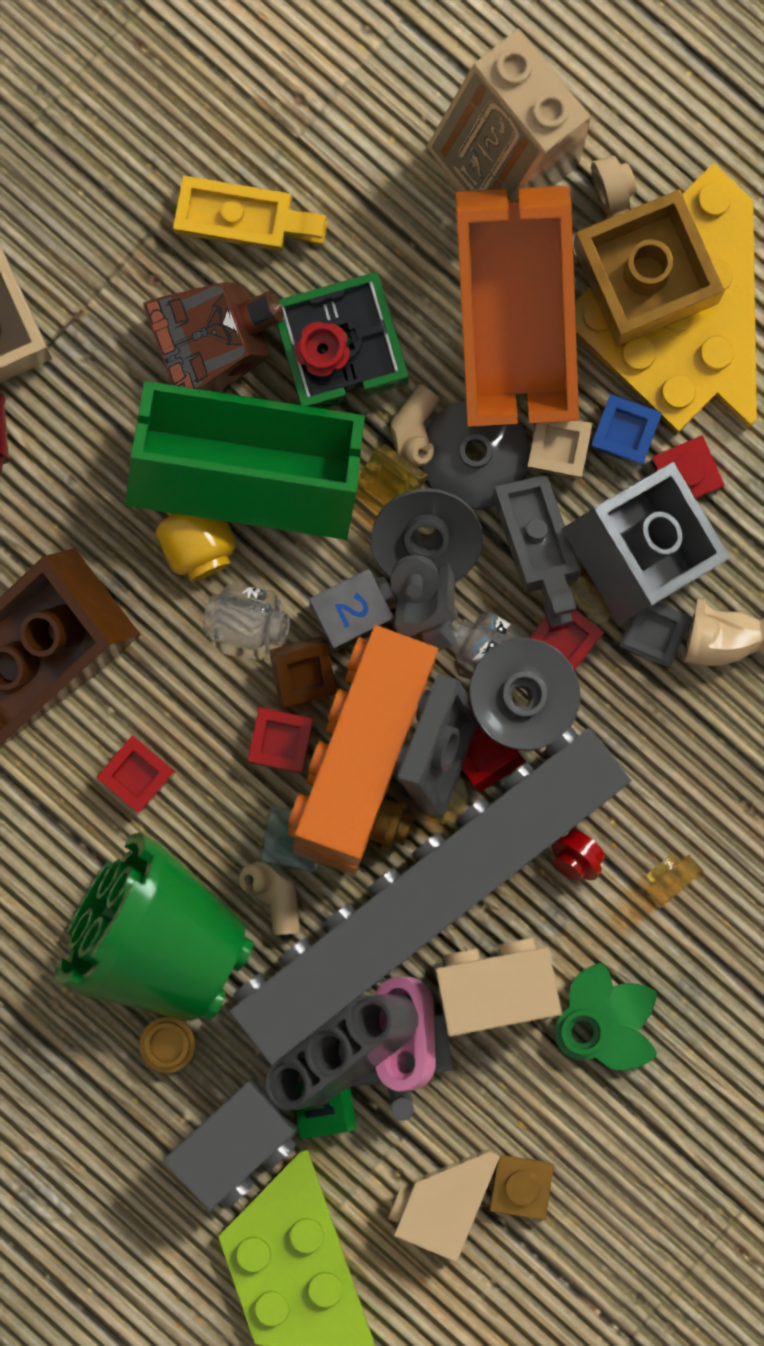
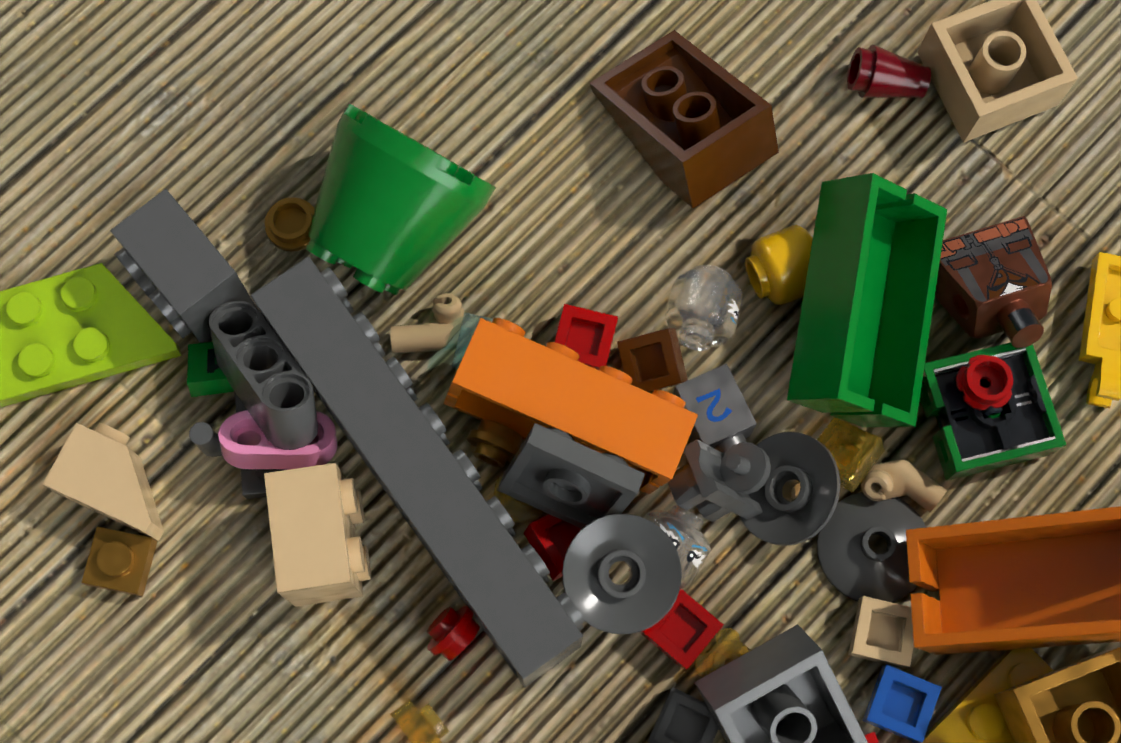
camera: 90 degrees right, 10 degrees down
(136, 774) = (555, 202): red plate -> none
(539, 544) = (779, 602): dark grey plate -> none
(615, 1019) = (281, 666): green plate -> none

